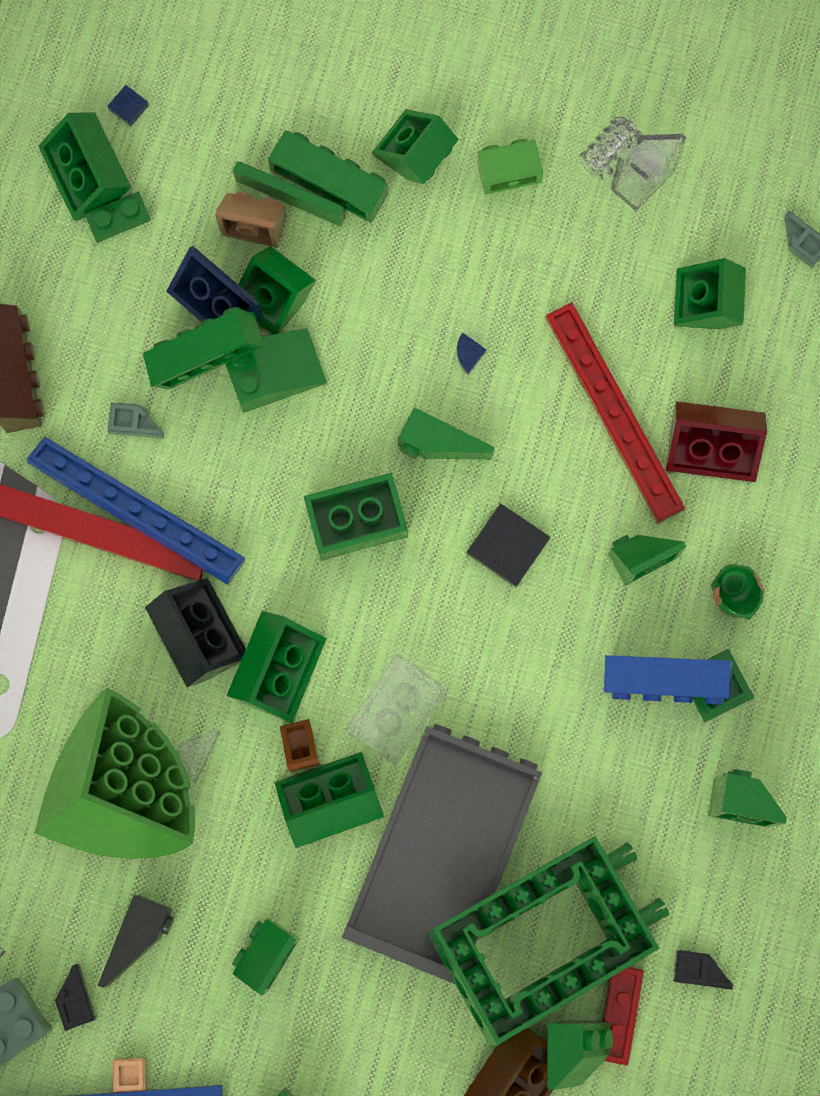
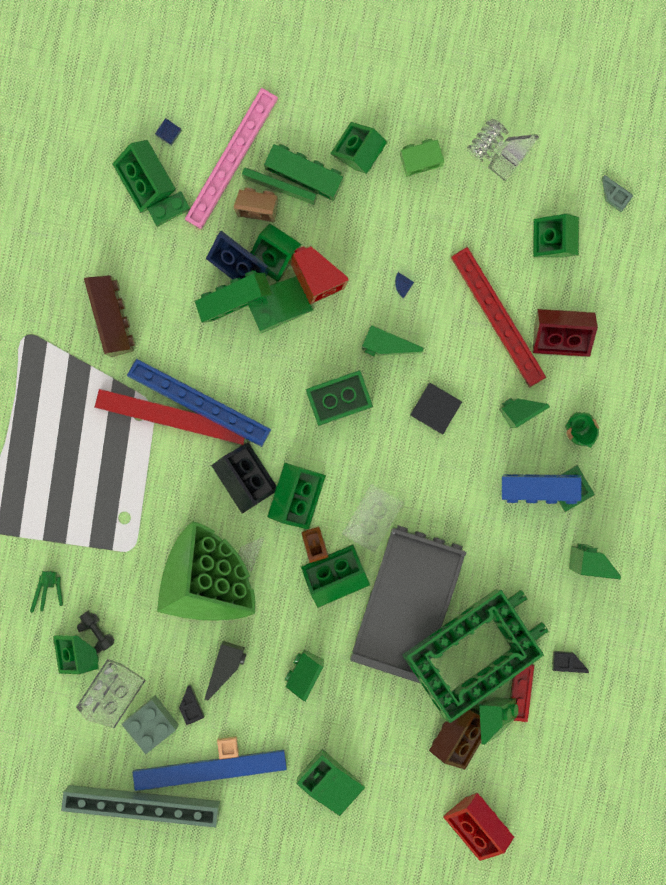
camera: 10 degrees left, 10 degrees up
(132, 421) = (191, 344): sand green tile -> none
(219, 151) = (231, 158): none -> bright pink tile
(336, 325) = (316, 274): none -> red slope

